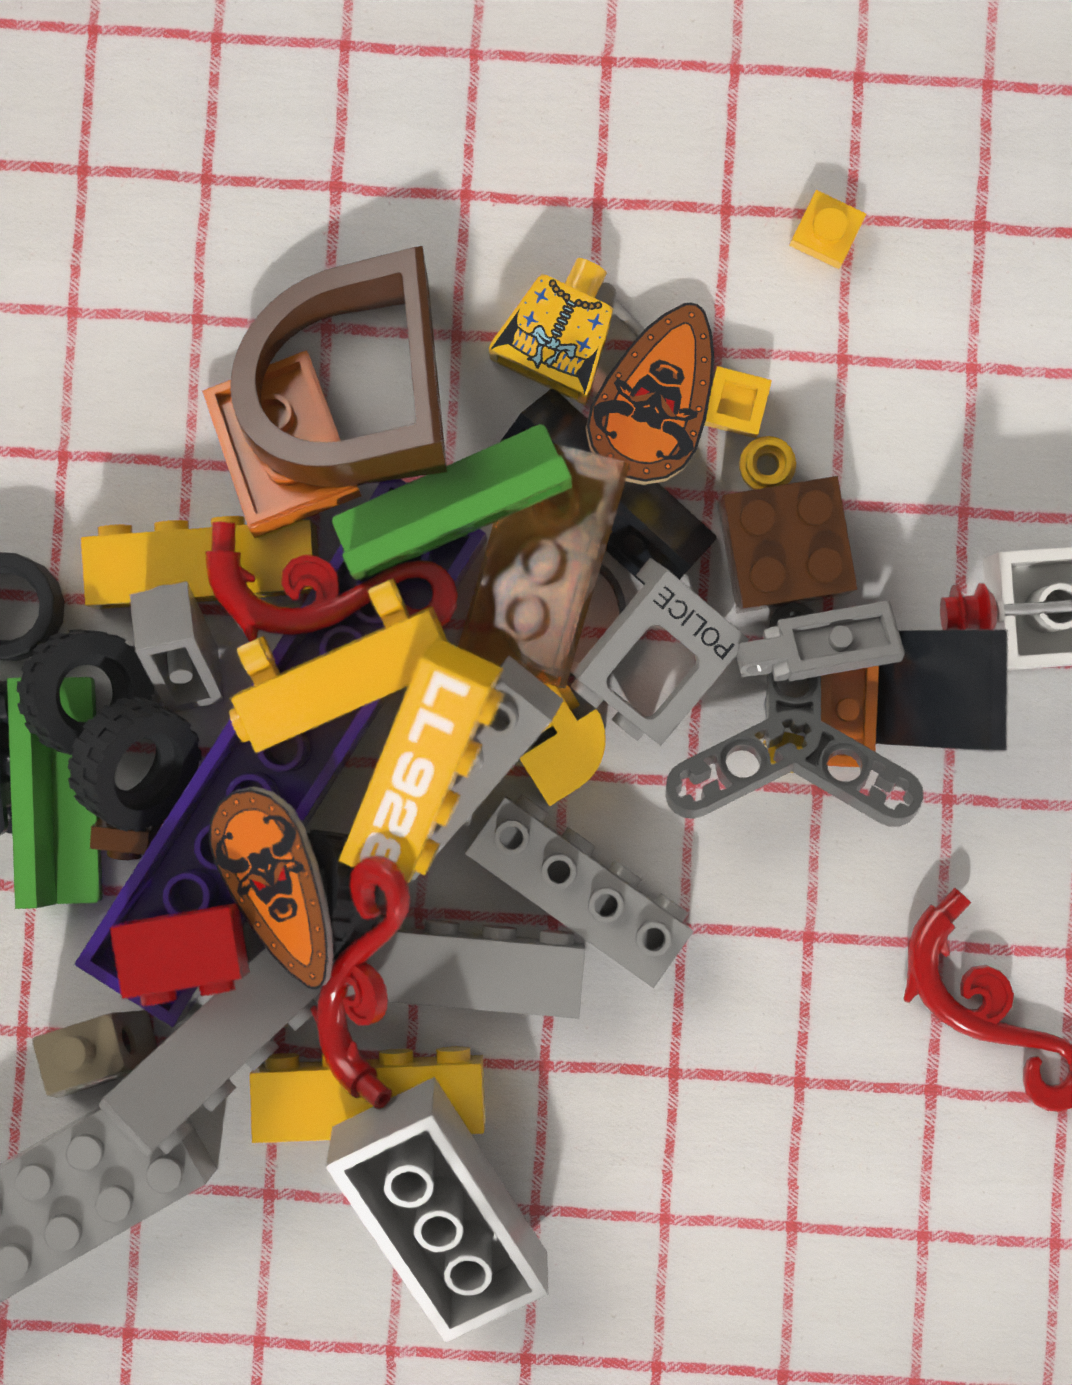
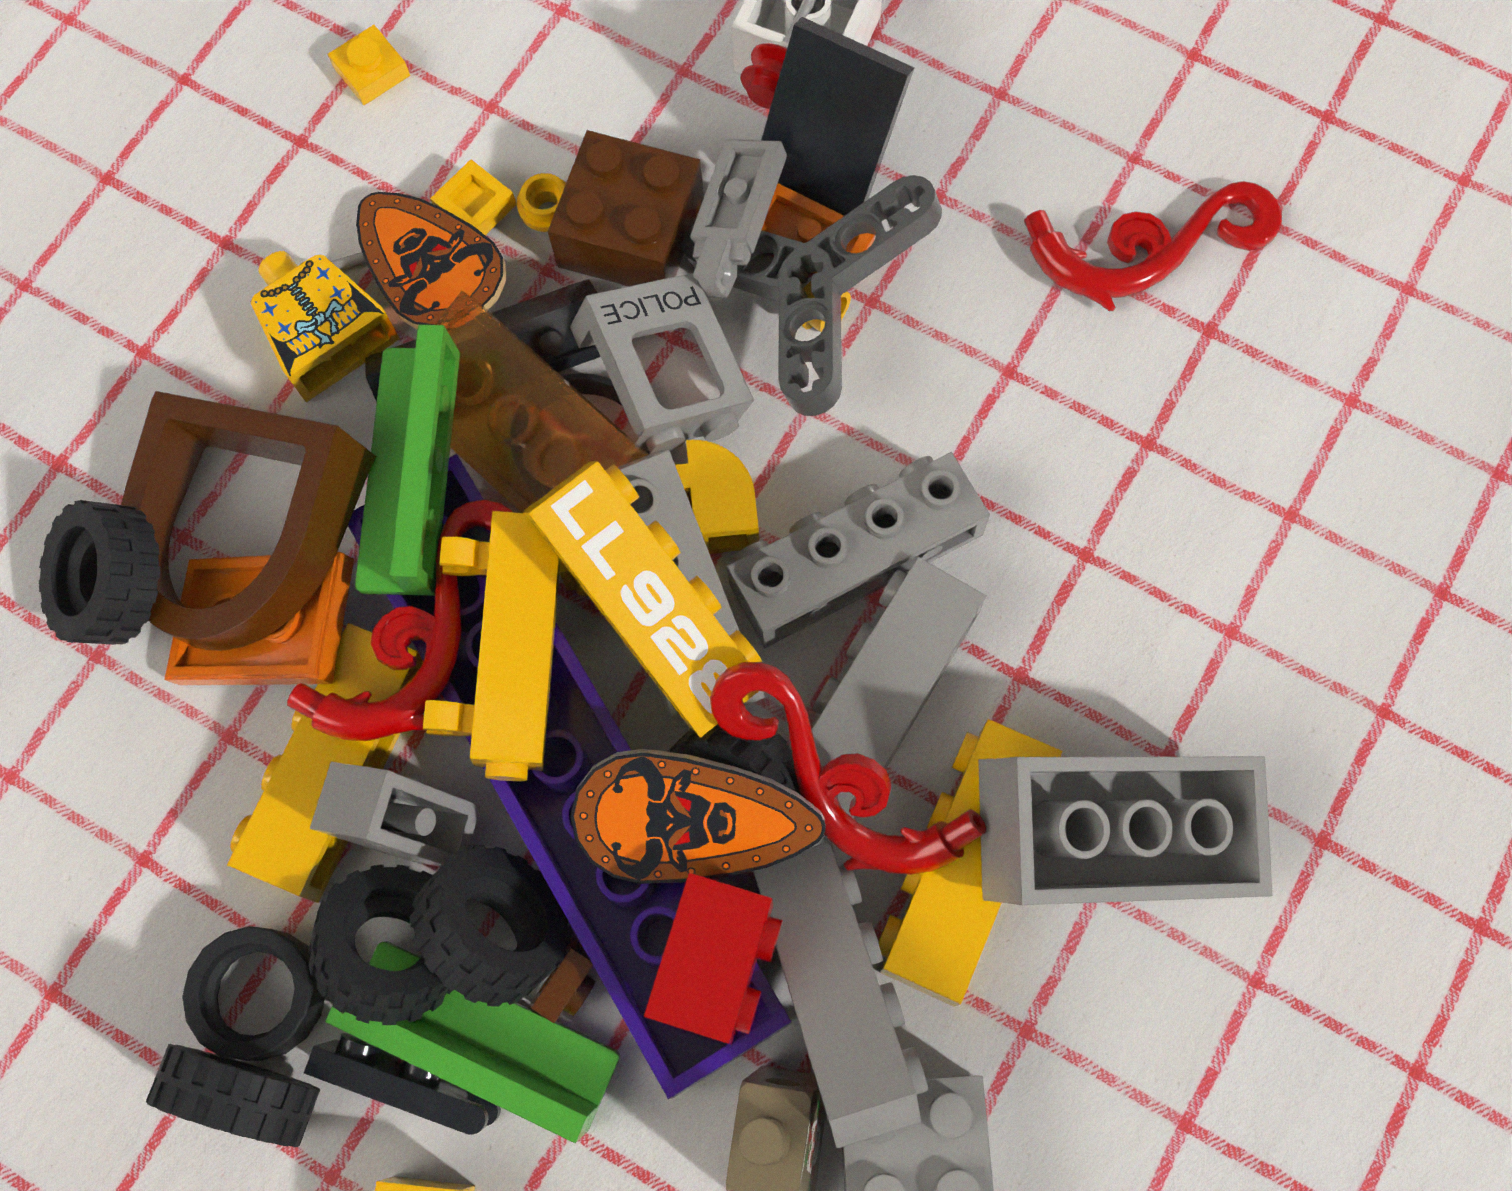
camera: 65 degrees left, 15 degrees down
(267, 318) = (99, 573): none -> black tyre

